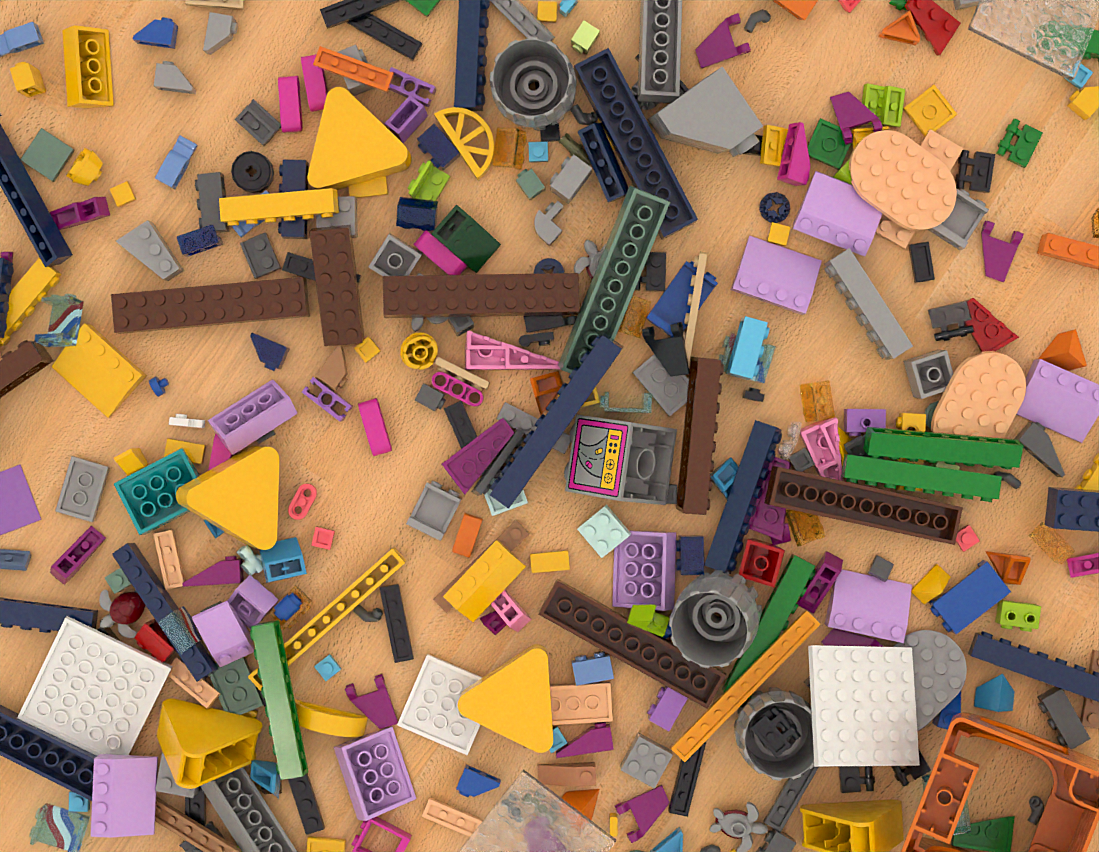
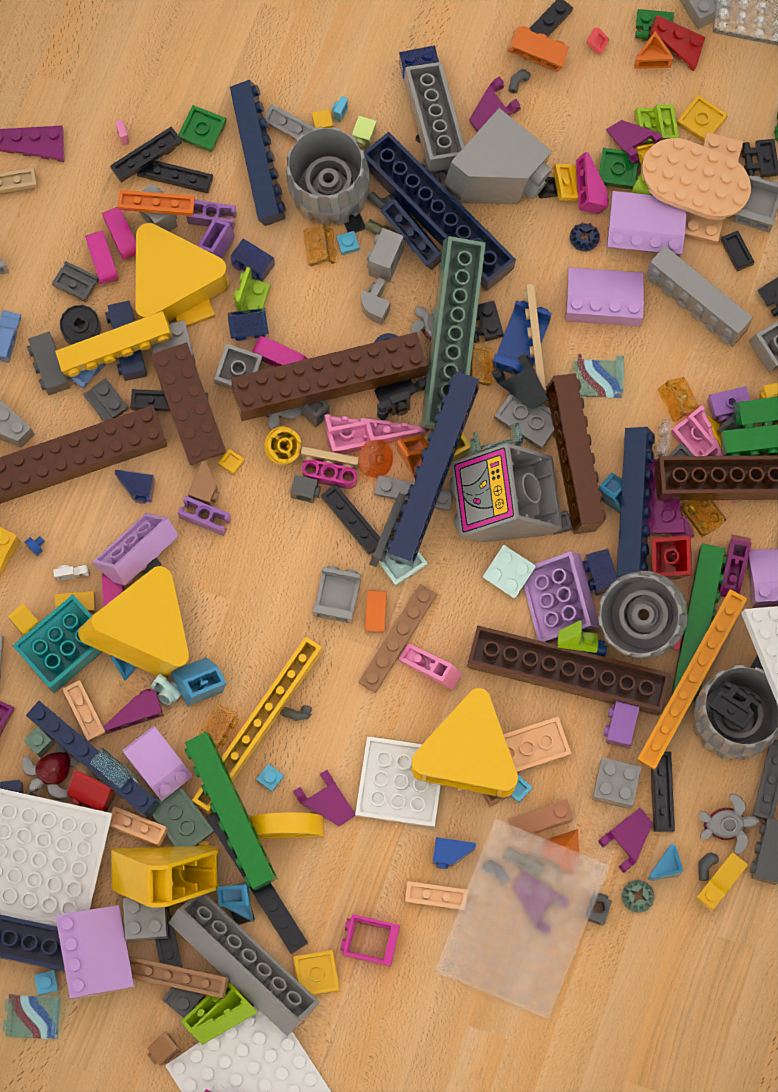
camera: 10 degrees left, 15 degrees down
(199, 241) = (44, 400): clear blue bracket -> none
(219, 31) = (19, 210): light grey slope -> none
(252, 601) = (178, 727): lavender slope -> none
(287, 606) = (215, 721): blue brick -> none
(303, 501) = (202, 620): coral plate -> none
(323, 538) = (233, 650): coral plate -> none
(375, 427) = (258, 530): dark pink beam -> none
(375, 773) = (345, 870): lavender slope -> none
(396, 623) = (328, 714): black plate -> none
(460, 144) = (267, 224): yellow window -> none
(466, 238) = (300, 332): dark green slope -> none
(475, 457) = (363, 532): magenta wing -> none
(484, 581) = (405, 645): yellow slope -> none
(493, 622) = (425, 688): magenta slope -> none
(501, 381) = (368, 458): none -> clear orange dish
(530, 183) = (348, 271): sand green brick -> none
(549, 561) = (464, 616): yellow tile -> none
(592, 668) = (536, 707): medium blue brick -> none
(592, 740) = (558, 777): magenta slope -> none
(613, 824) = (601, 855): yellow tile -> none
(747, 348) = (597, 363): medium azure brick -> none
(753, 394) = (616, 407): black plate -> none
(778, 234) = (595, 259): yellow tile -> none

